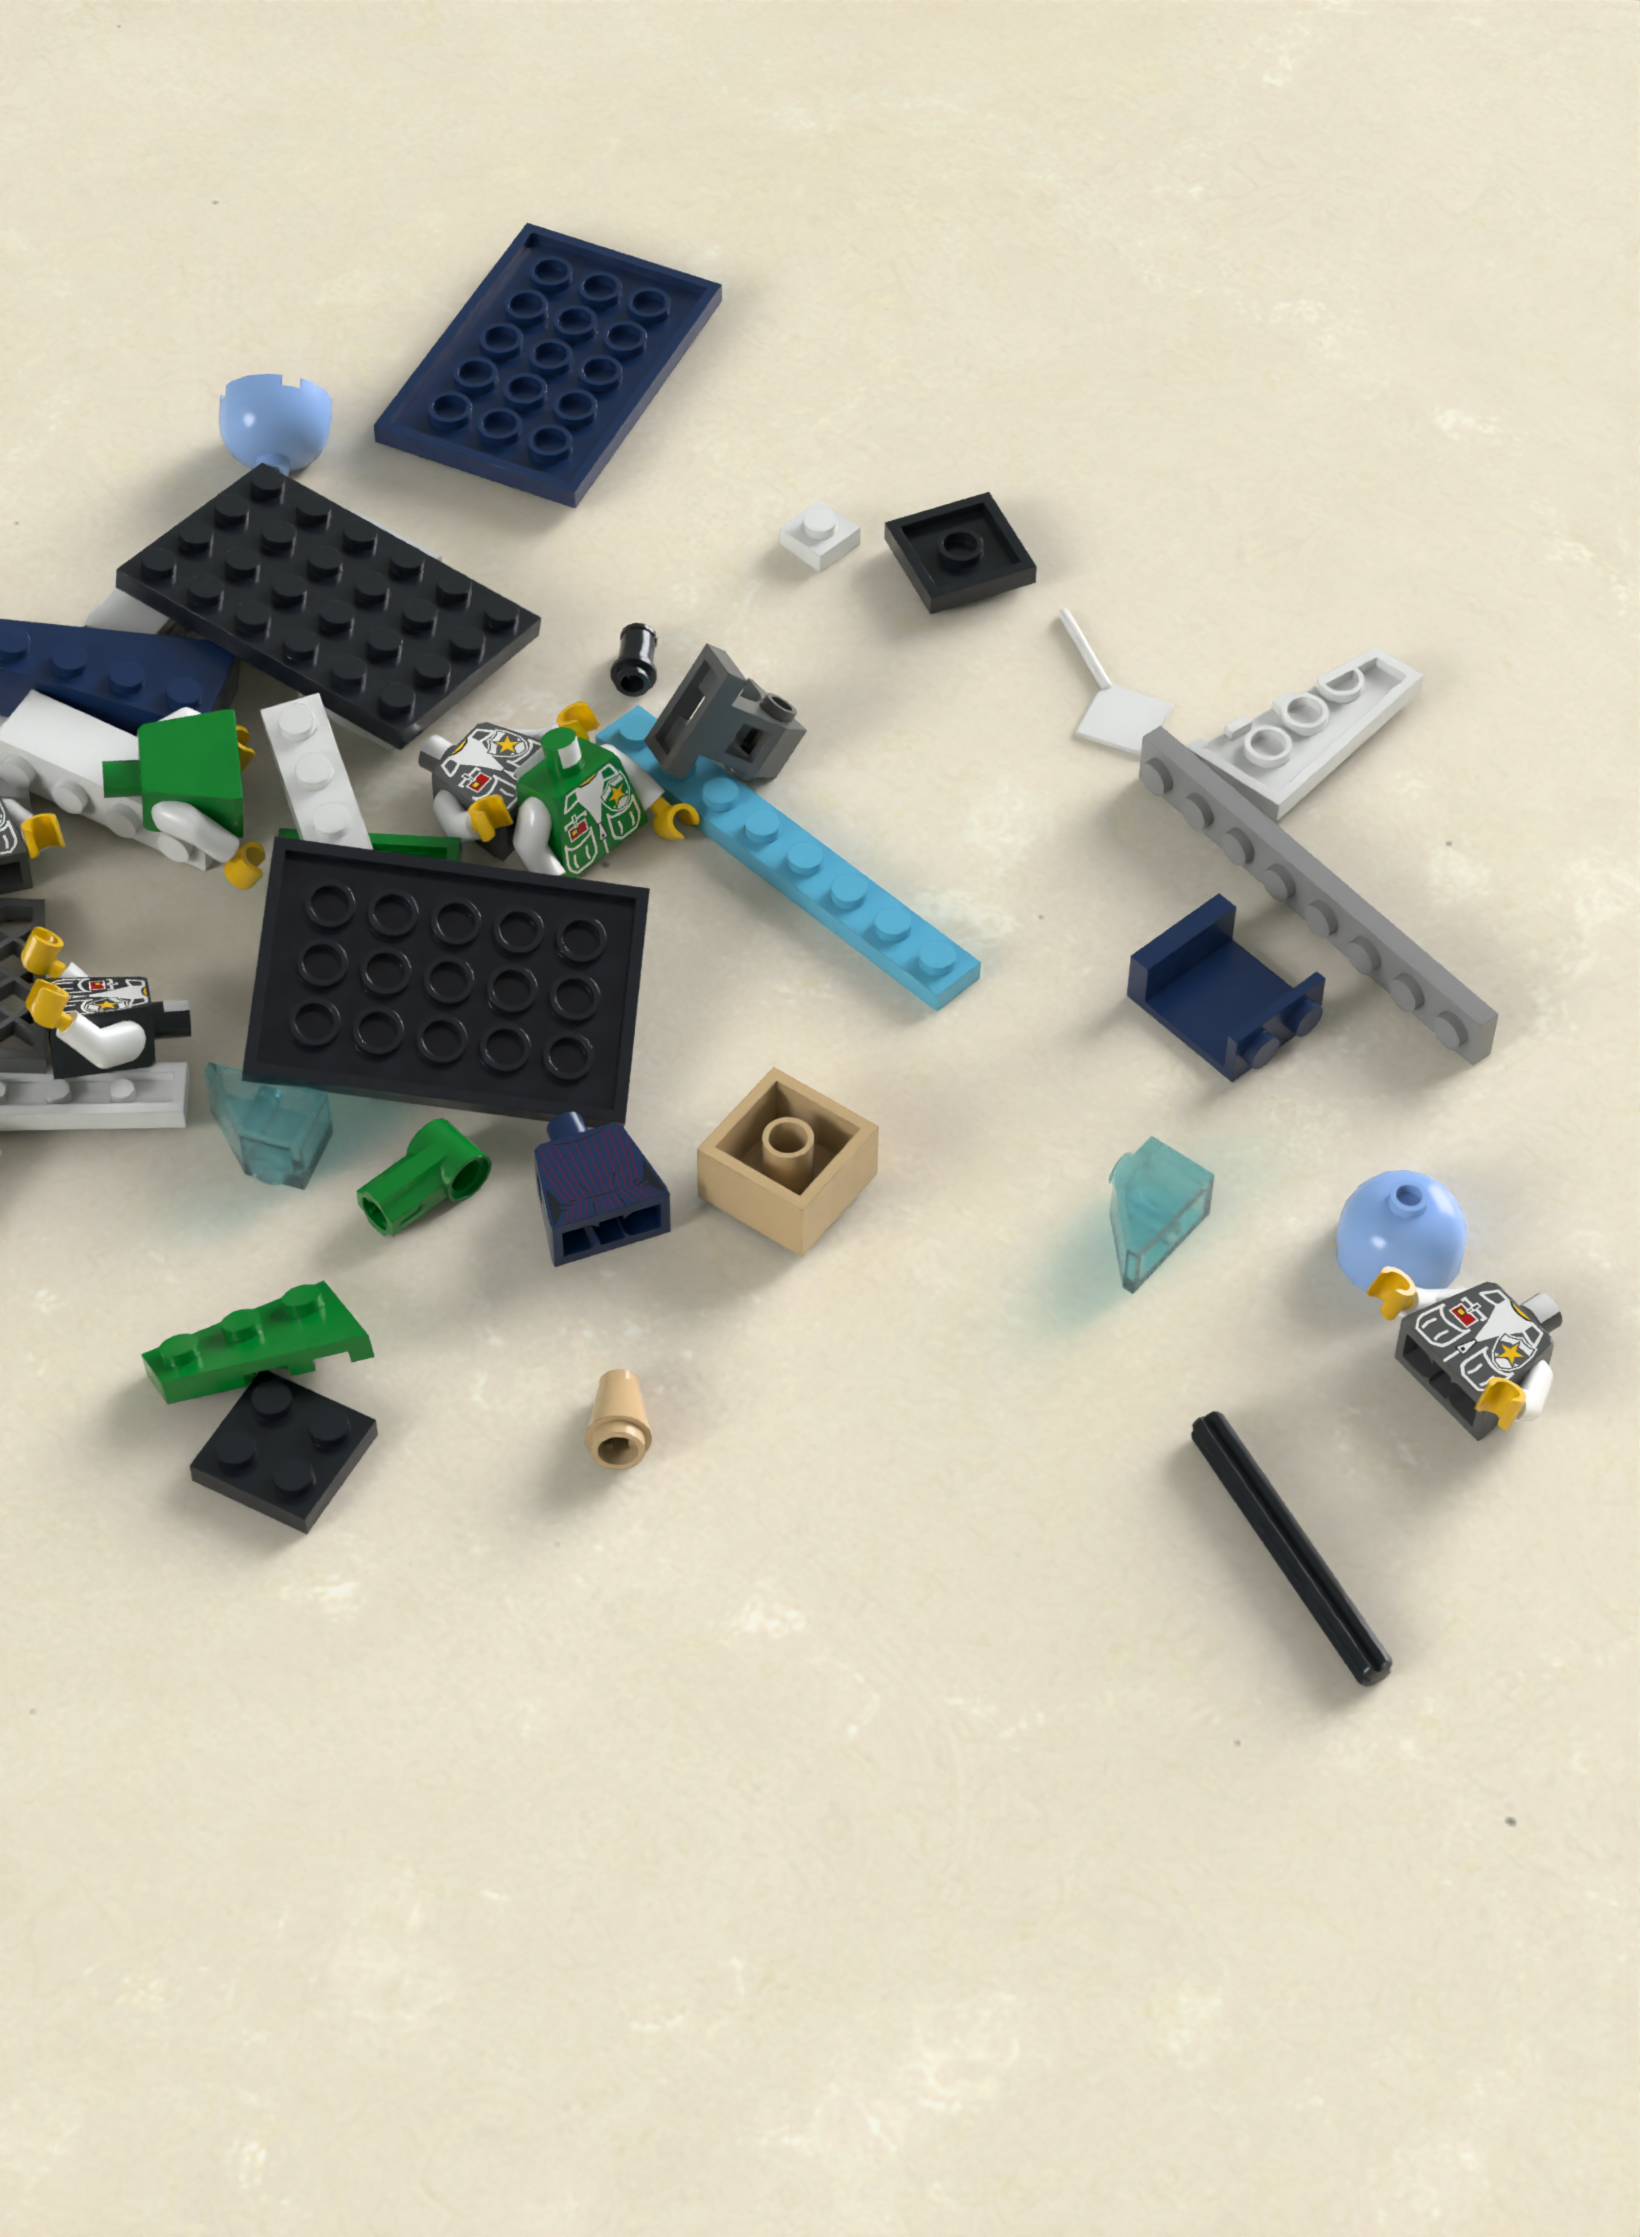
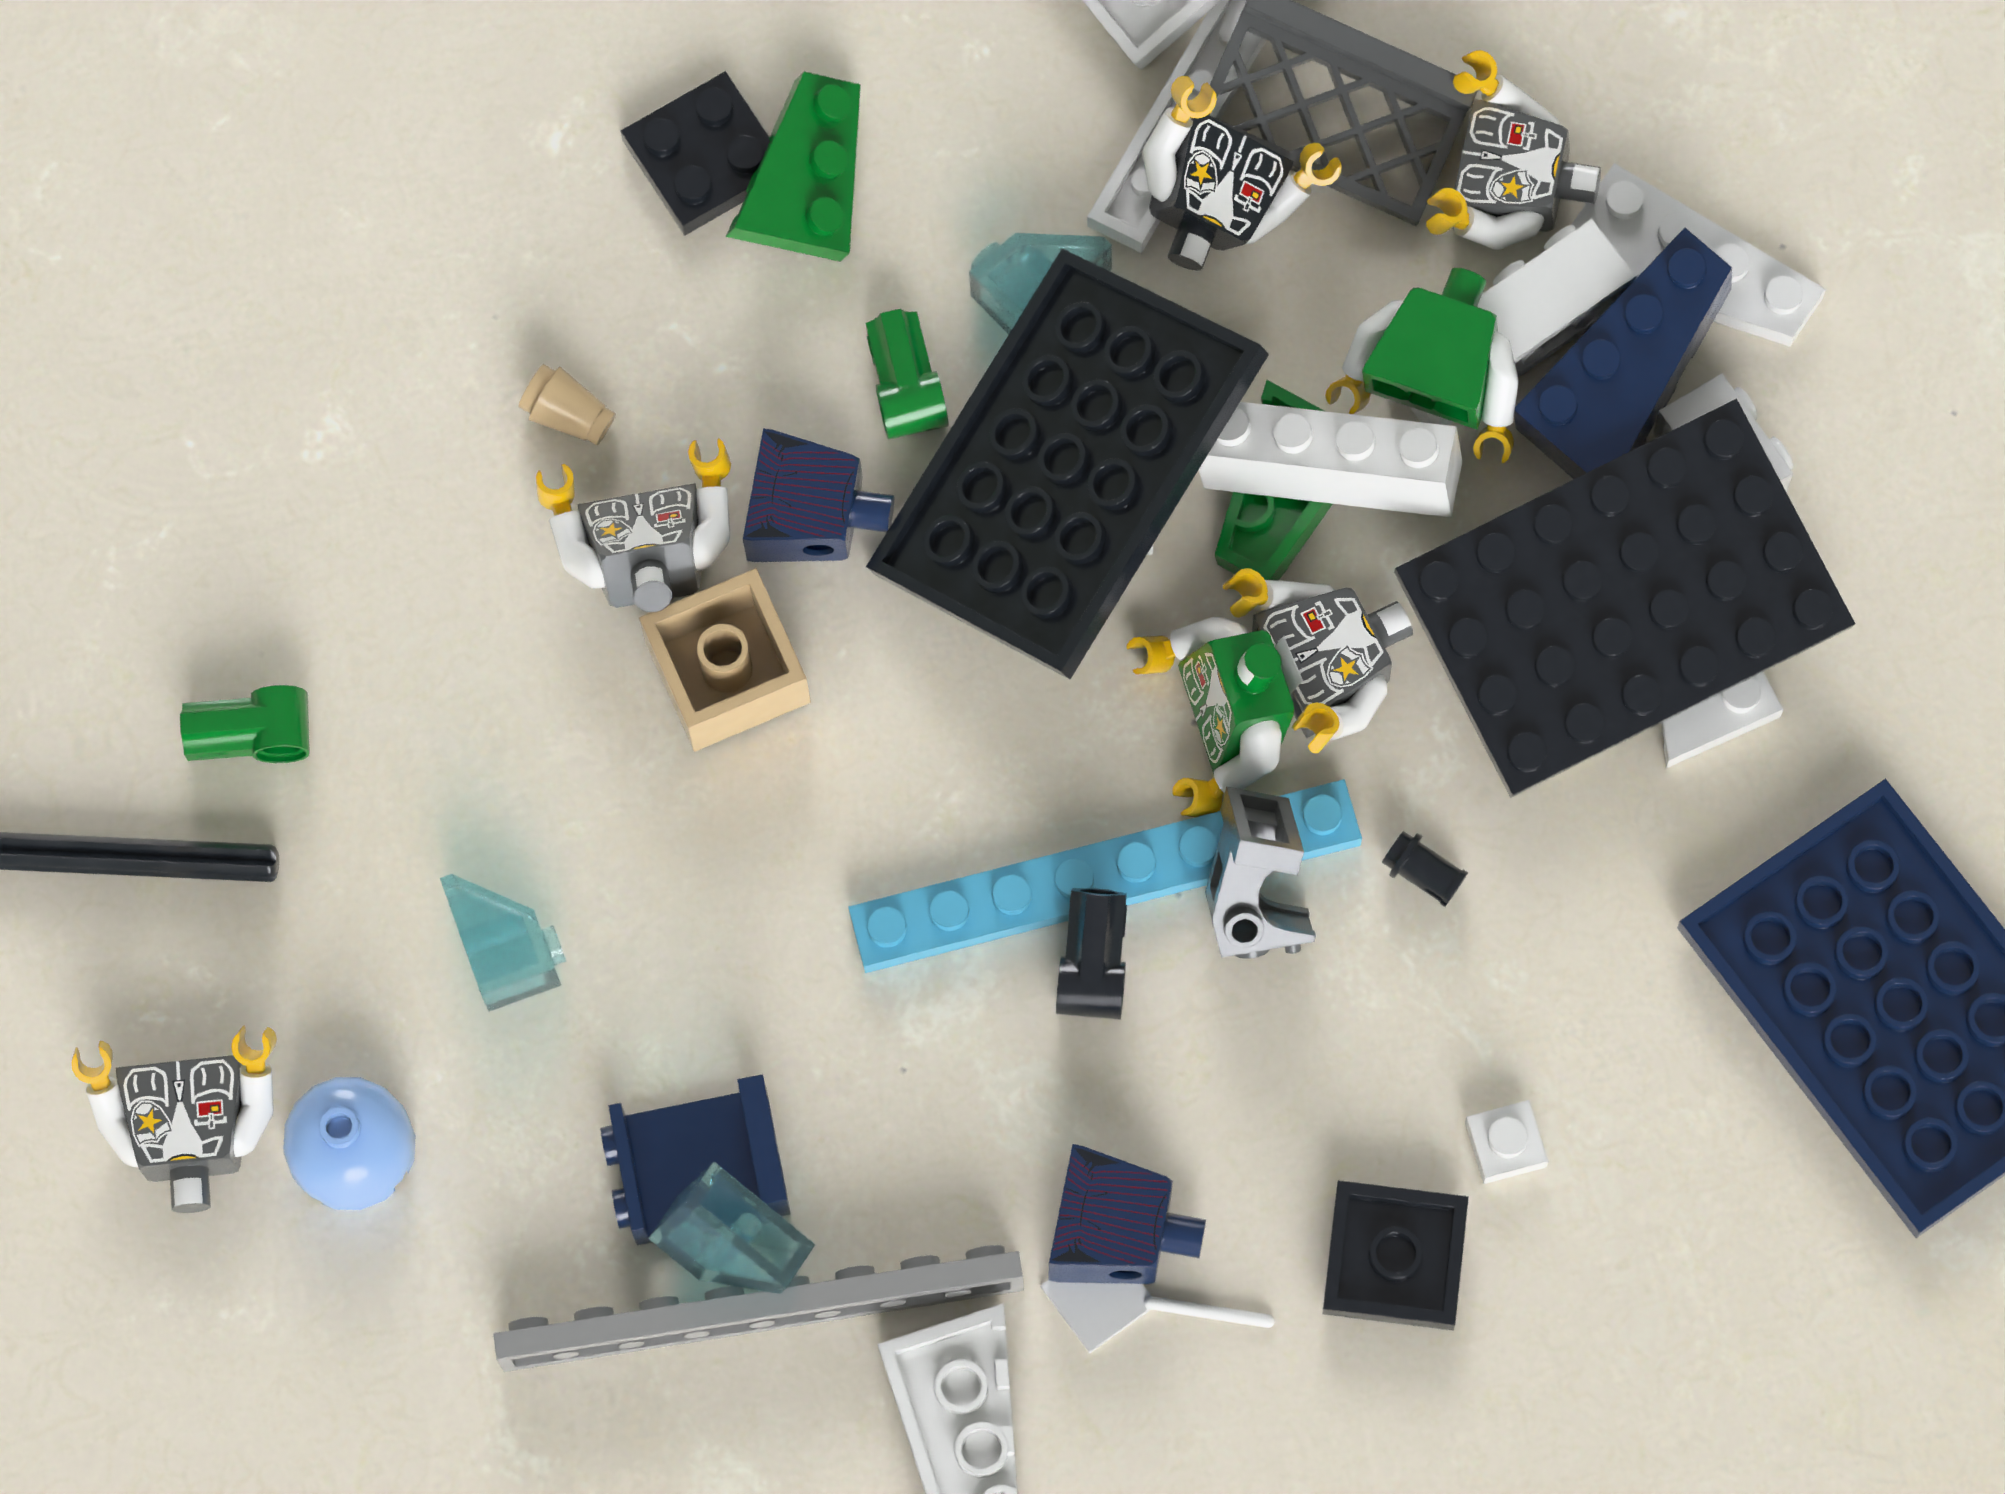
camera: 125 degrees right, 20 degrees up
(274, 422) = (1925, 676): light blue cylinder -> none
(716, 1265) = (647, 542): none -> torso
(873, 809) = (1092, 971): none -> black piece
(1070, 712) = (1117, 1222): none -> dark blue torso
(1092, 1490) = (266, 726): none -> green piece
(1277, 920) = (730, 1235): none -> clear light blue slope

